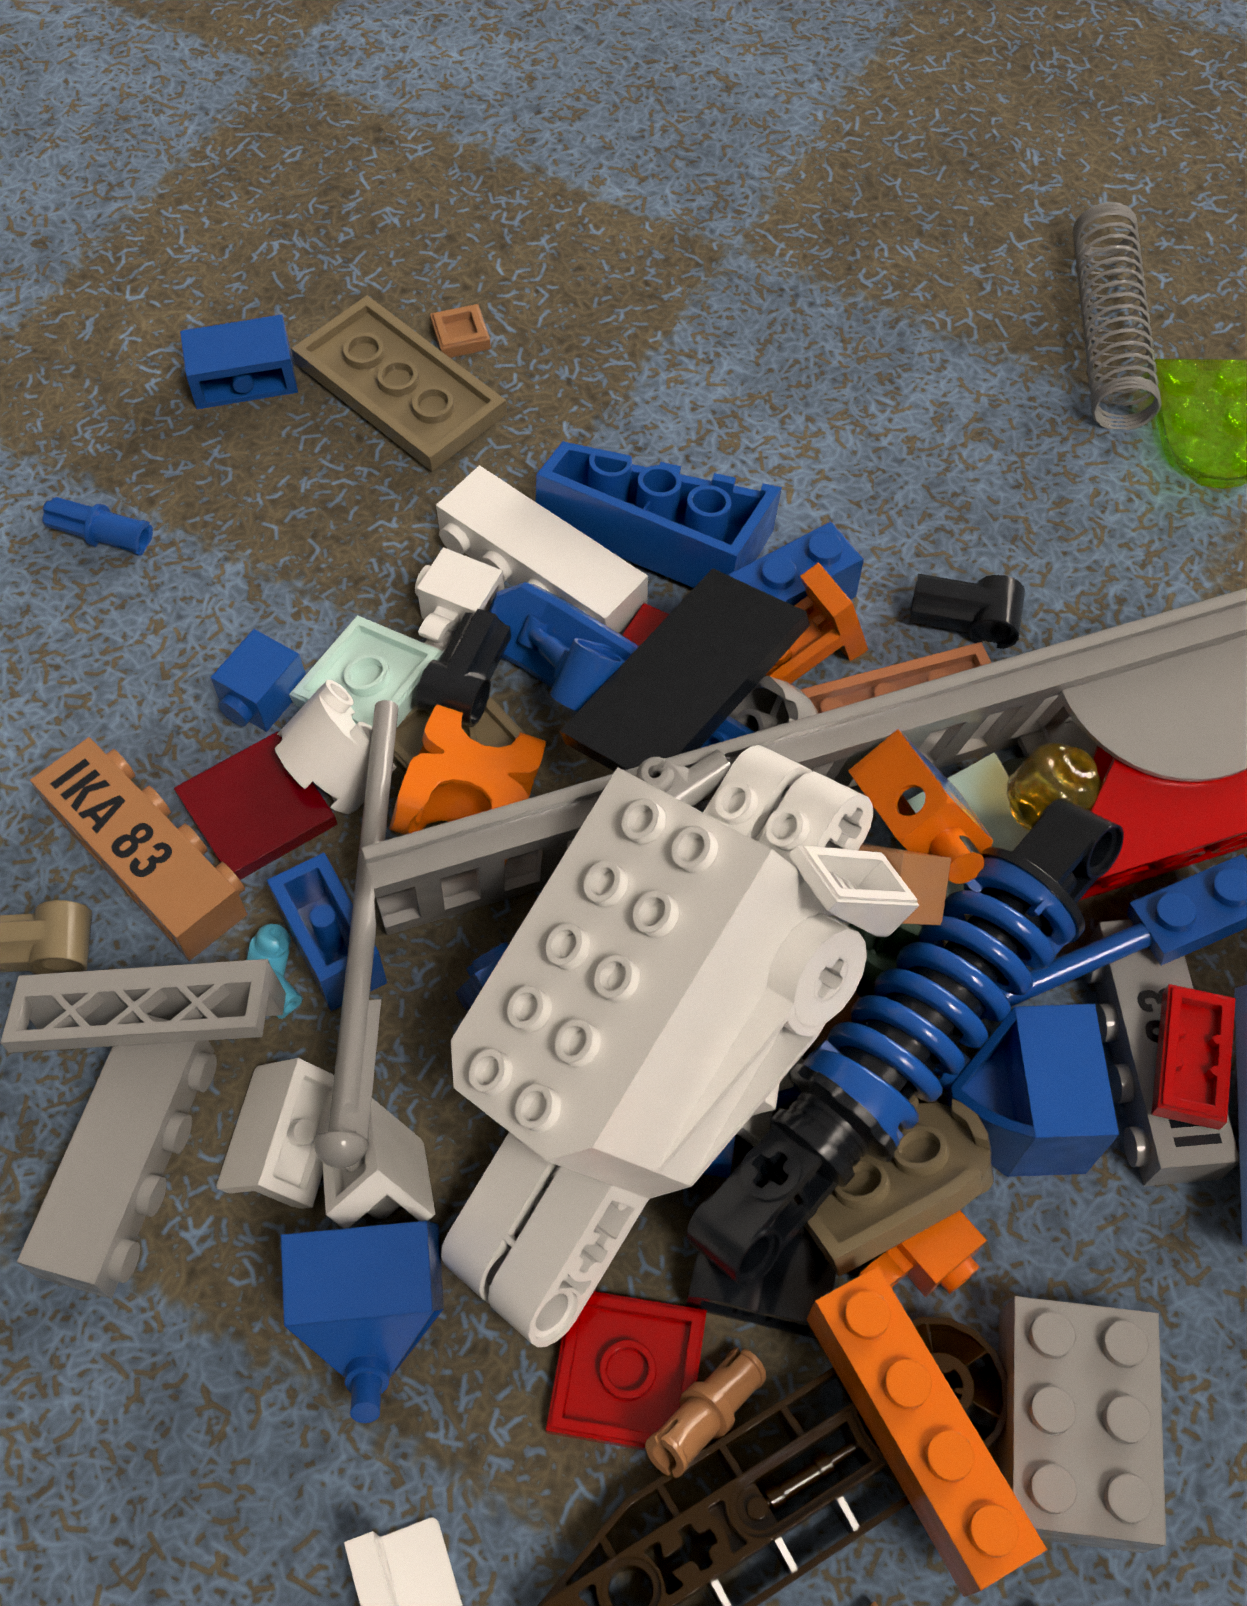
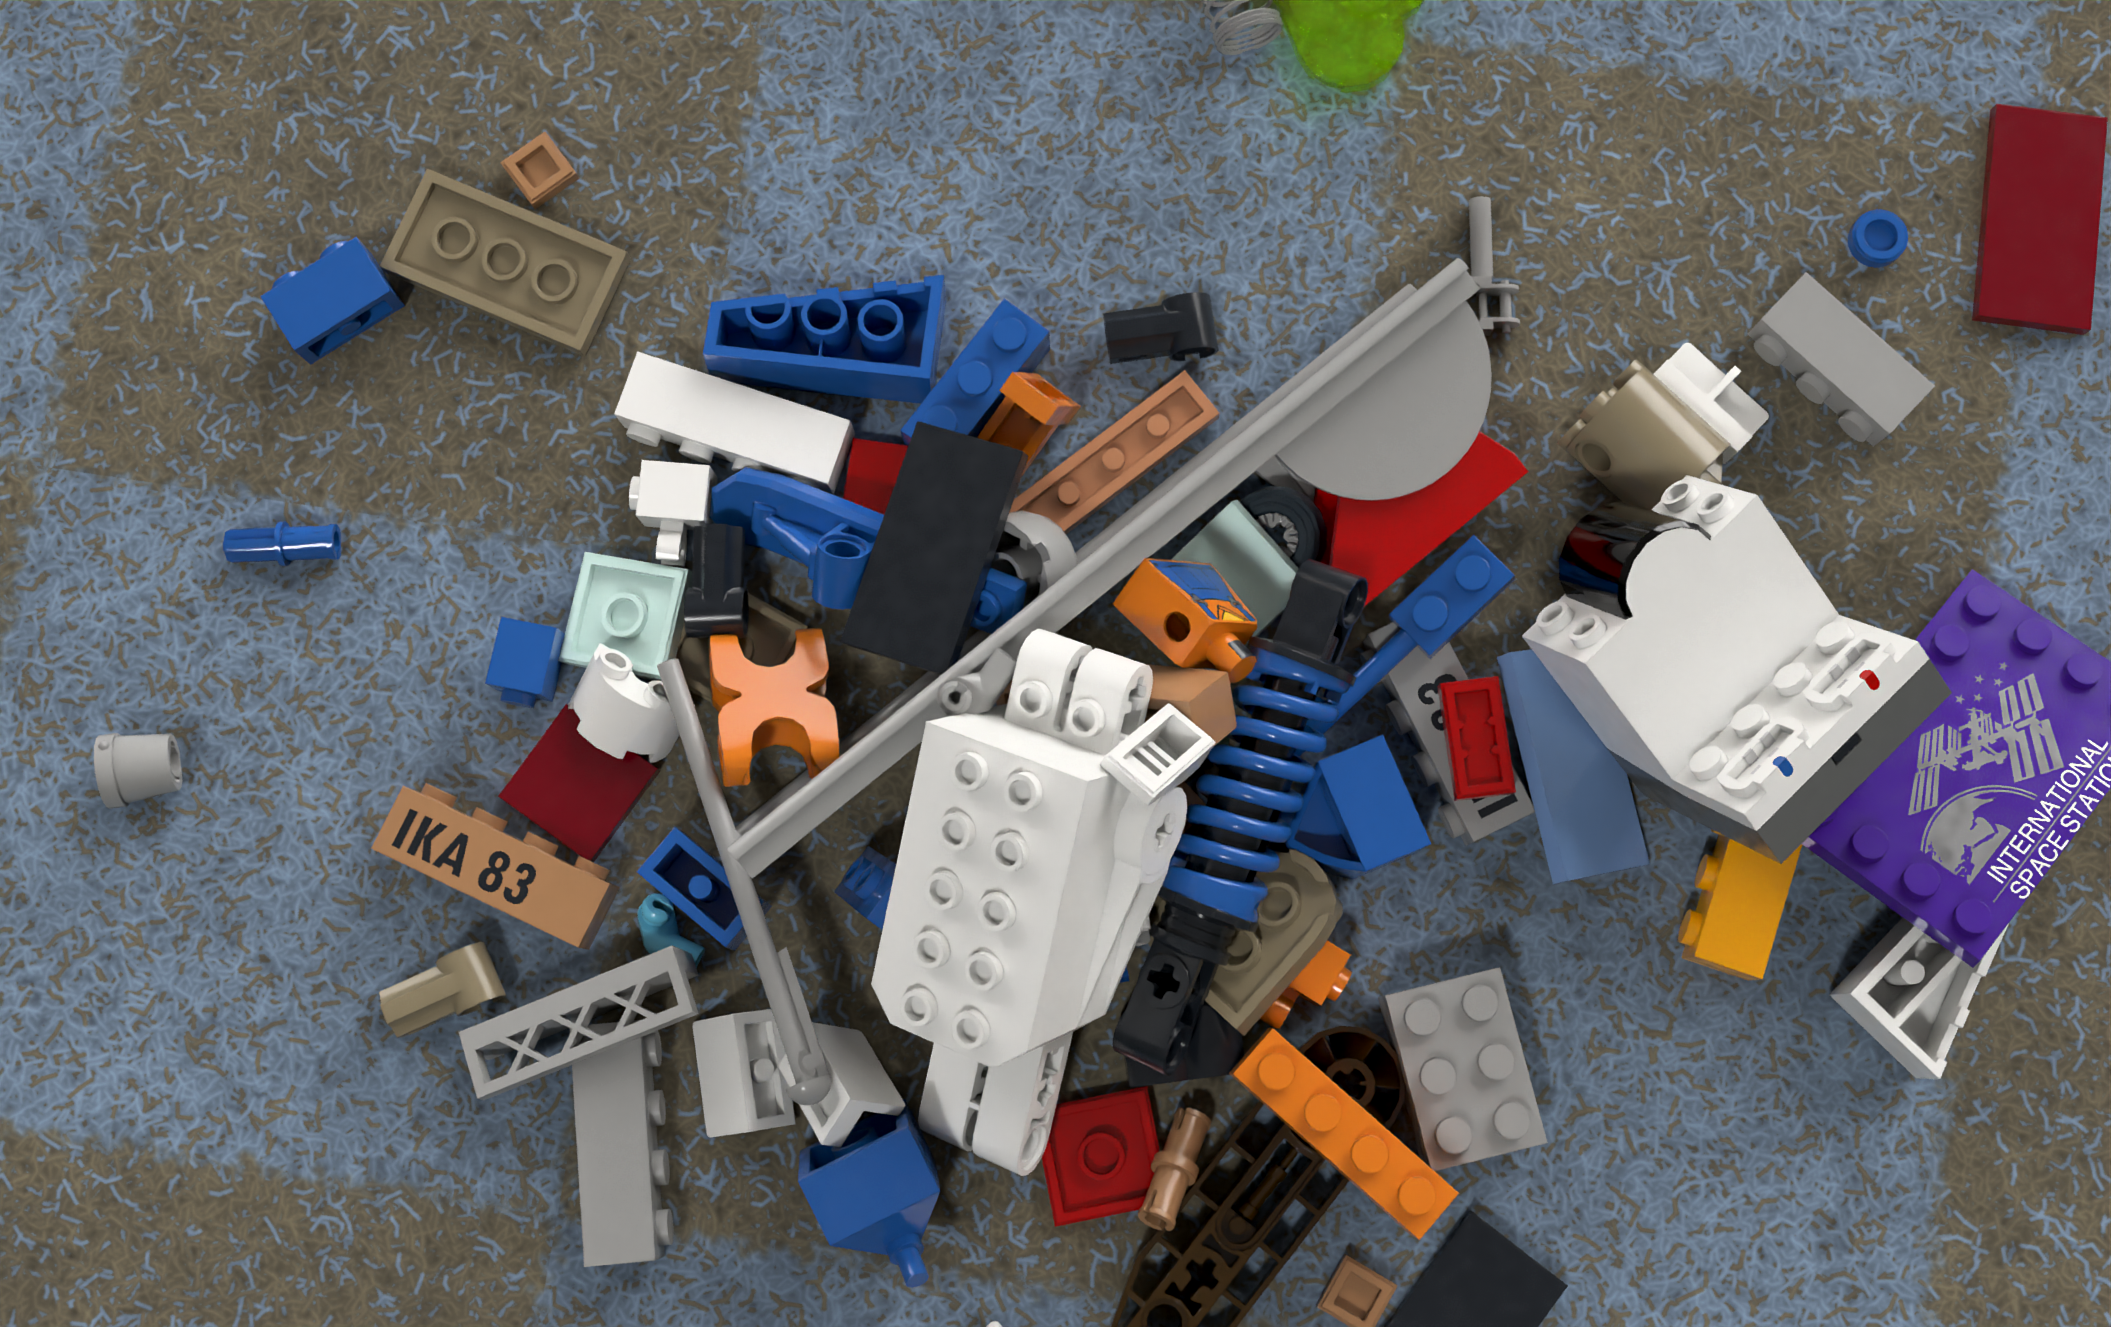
camera: 15 degrees left, 20 degrees up
(1052, 774) = (1293, 531): clear yellow head -> none

